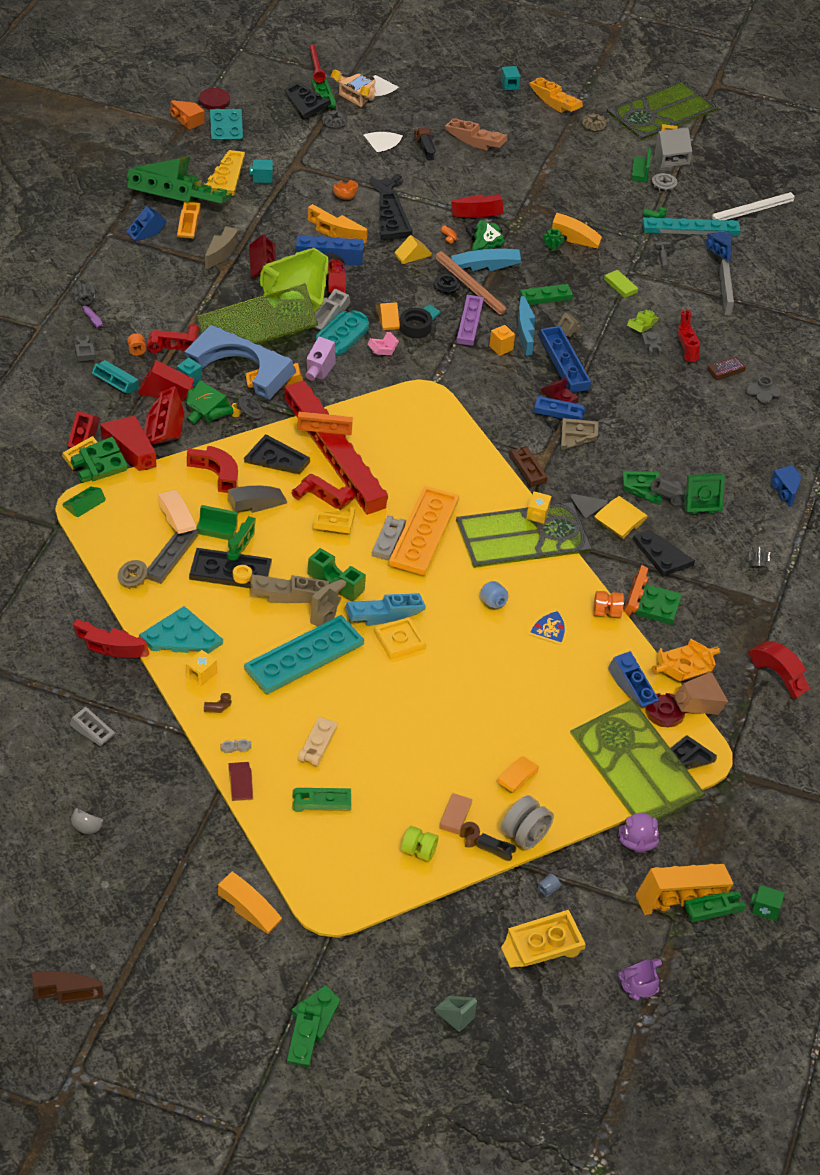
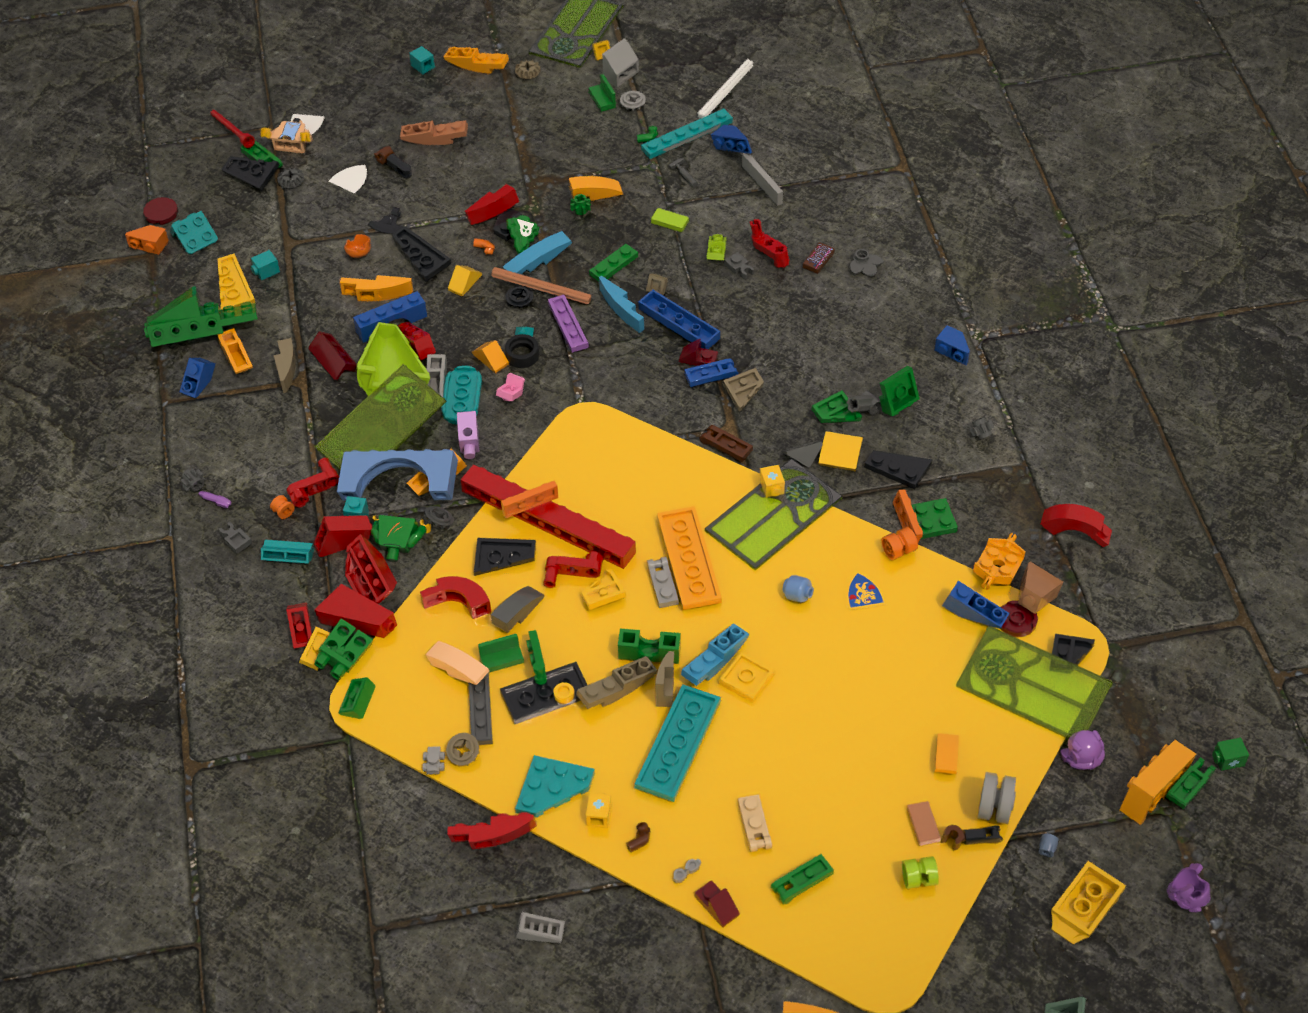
camera: 25 degrees left, 5 degrees up
(105, 571) = (433, 759): none -> light grey piece
(502, 340) = (612, 329): light orange brick -> none

